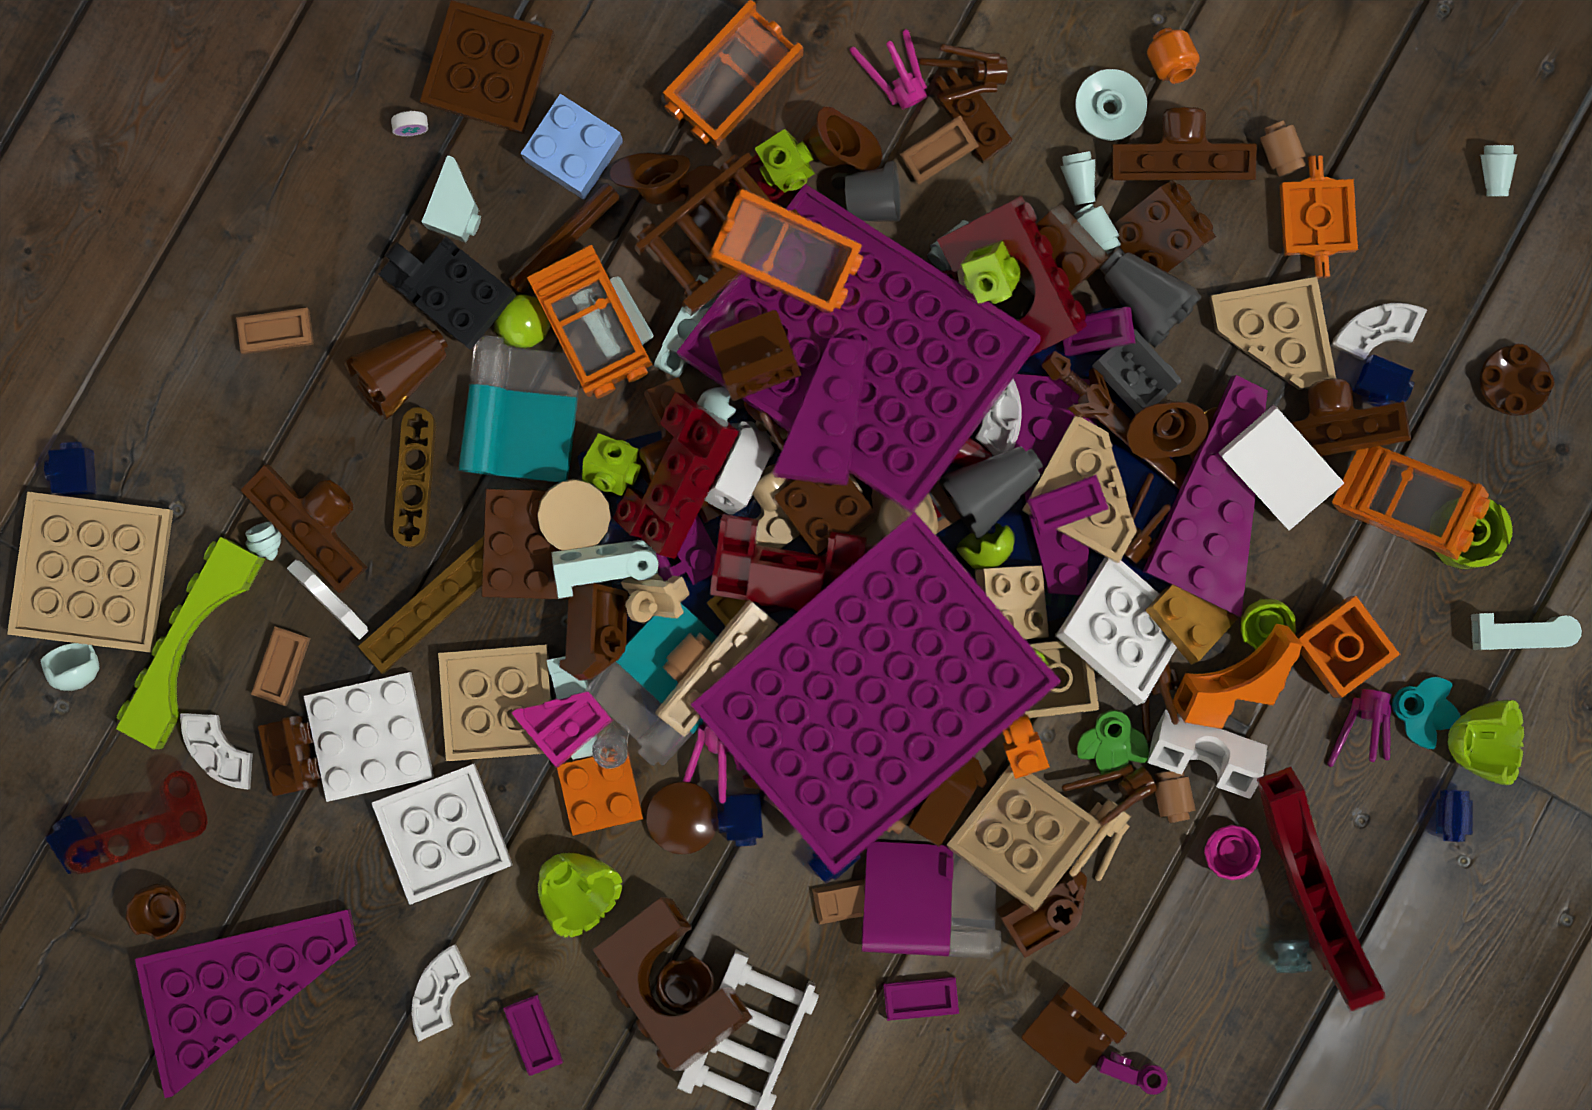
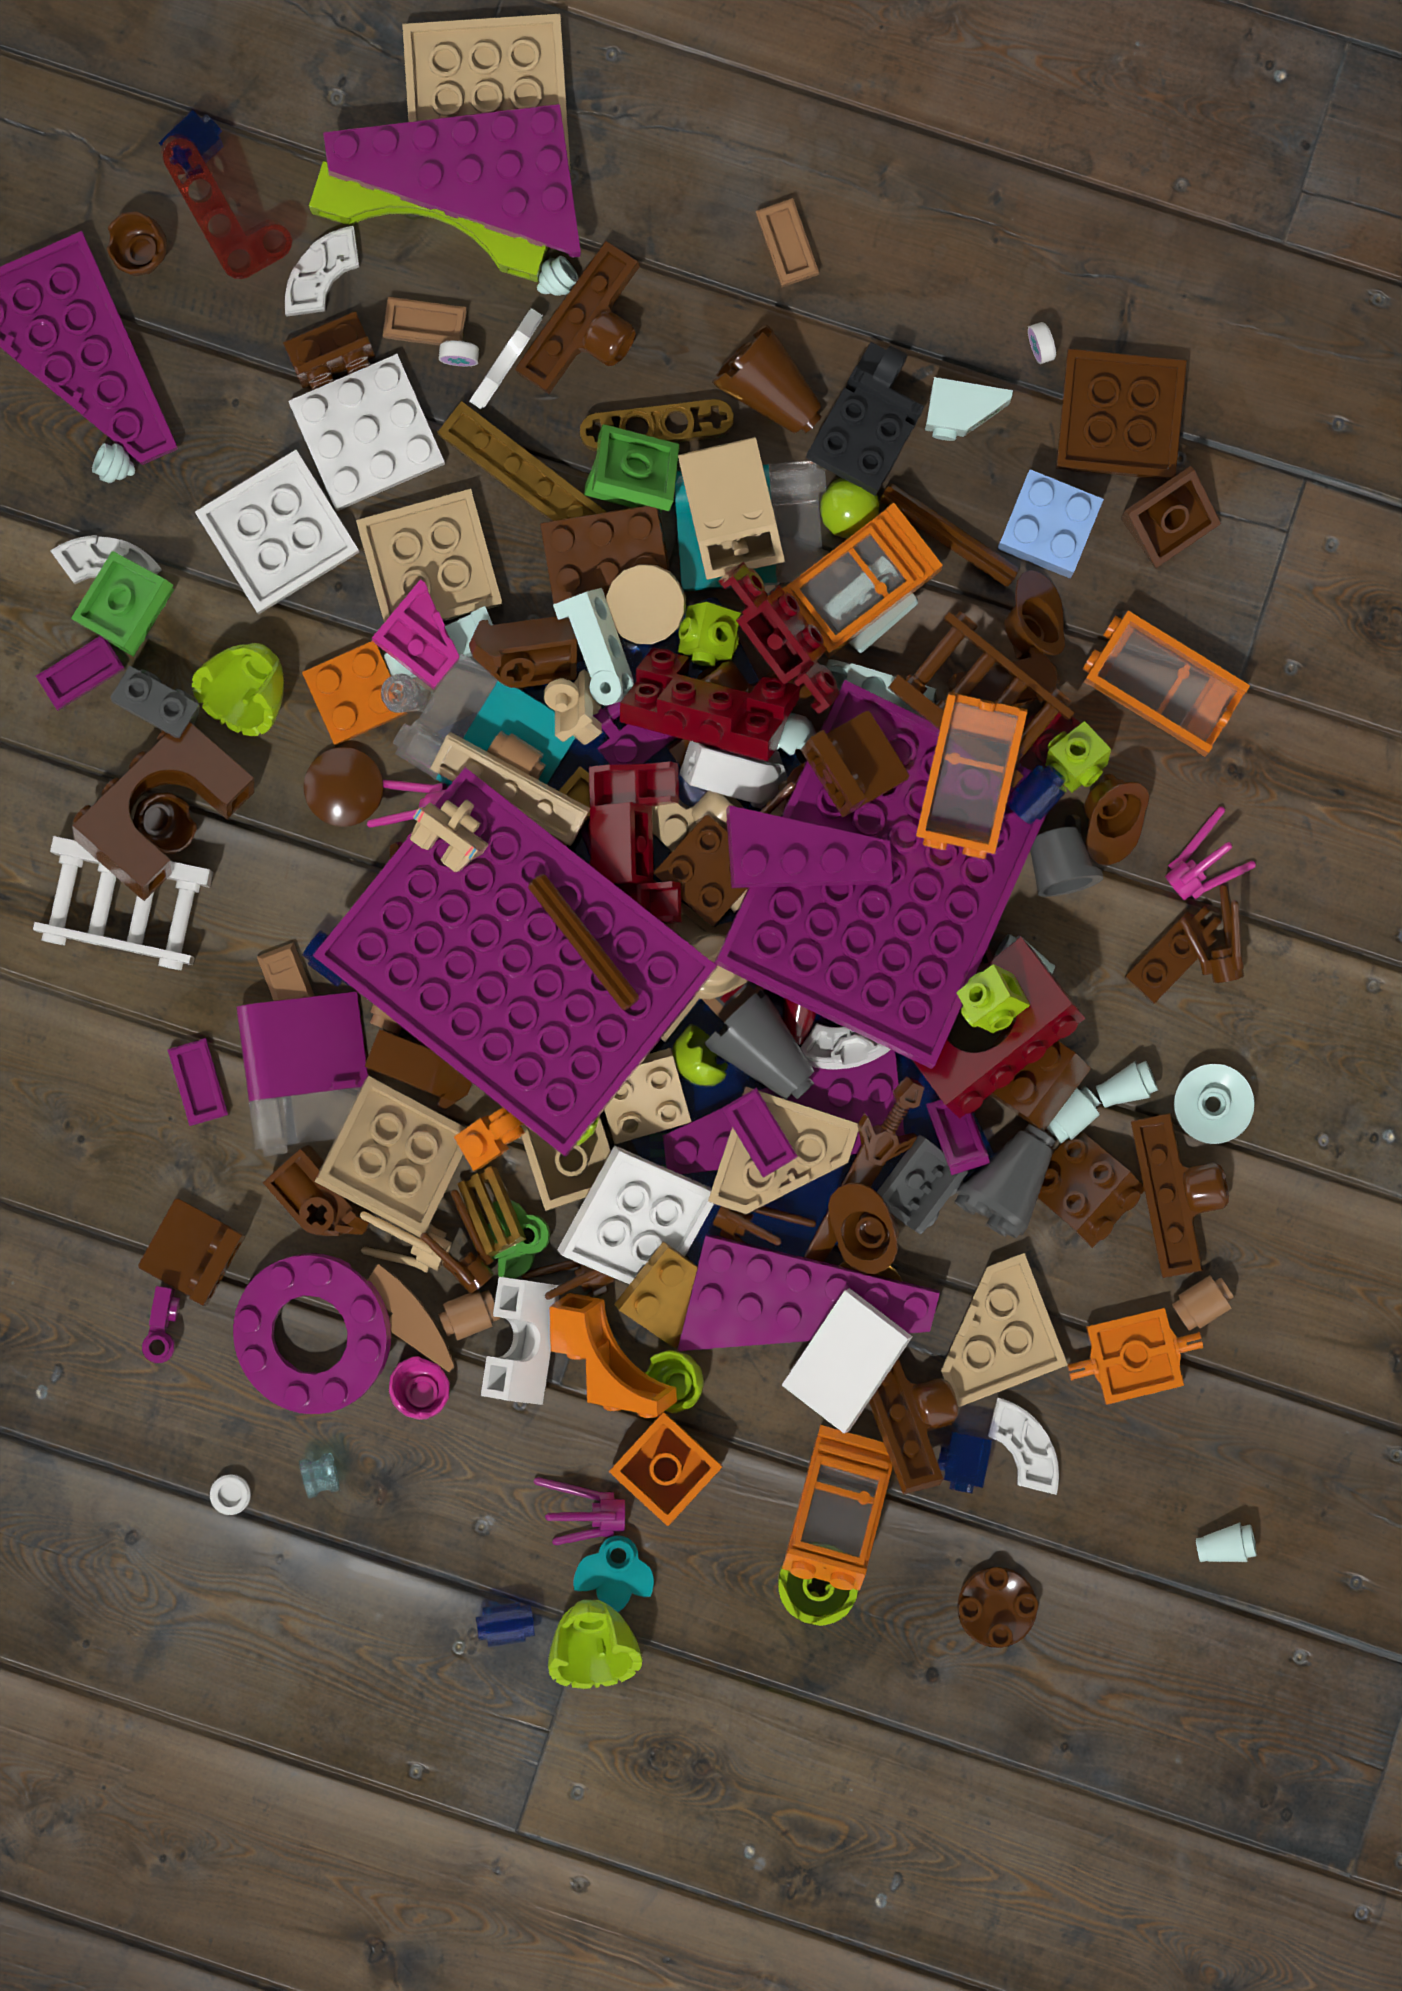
camera: 80 degrees right, 0 degrees up
(70, 666) = (380, 97): light aqua hair -> none
(71, 470) = (592, 55): clear blue brick -> none
(150, 586) = (480, 167): none -> magenta wing
(314, 640) = (459, 353): none -> white tile
(351, 970) = (112, 463): none -> light aqua plate
(450, 504) = (633, 469): none -> bright green bracket
(479, 985) = (123, 603): none -> bright green bracket
(503, 422) = (731, 507): none -> tan slope
(575, 973) = (154, 702): none -> dark grey bracket
(587, 40) = (1171, 517): none -> reddish brown slope
(627, 397) = (782, 635): none -> dark red bracket
(742, 819) = (354, 851): clear blue brick -> none
(744, 725) = (455, 831): none -> tan hips
(812, 199) = (1037, 793): none -> clear blue brick
(871, 627) = (583, 942): none -> reddish brown axle
(939, 150) = (1126, 925): medium nougat tile -> none
(1089, 771) = (477, 1182): none -> pearl gold tile
(1145, 895) = (353, 1298): none -> magenta plate
(1167, 849) = (411, 1319): none -> medium nougat slope
(1173, 55) = (1282, 1161): orange head -> none
(1293, 1039) = (230, 1494): none -> white tile
(1314, 889) = (397, 1481): dark red arch -> none
(1554, 633) = (726, 1701): light aqua leg -> none

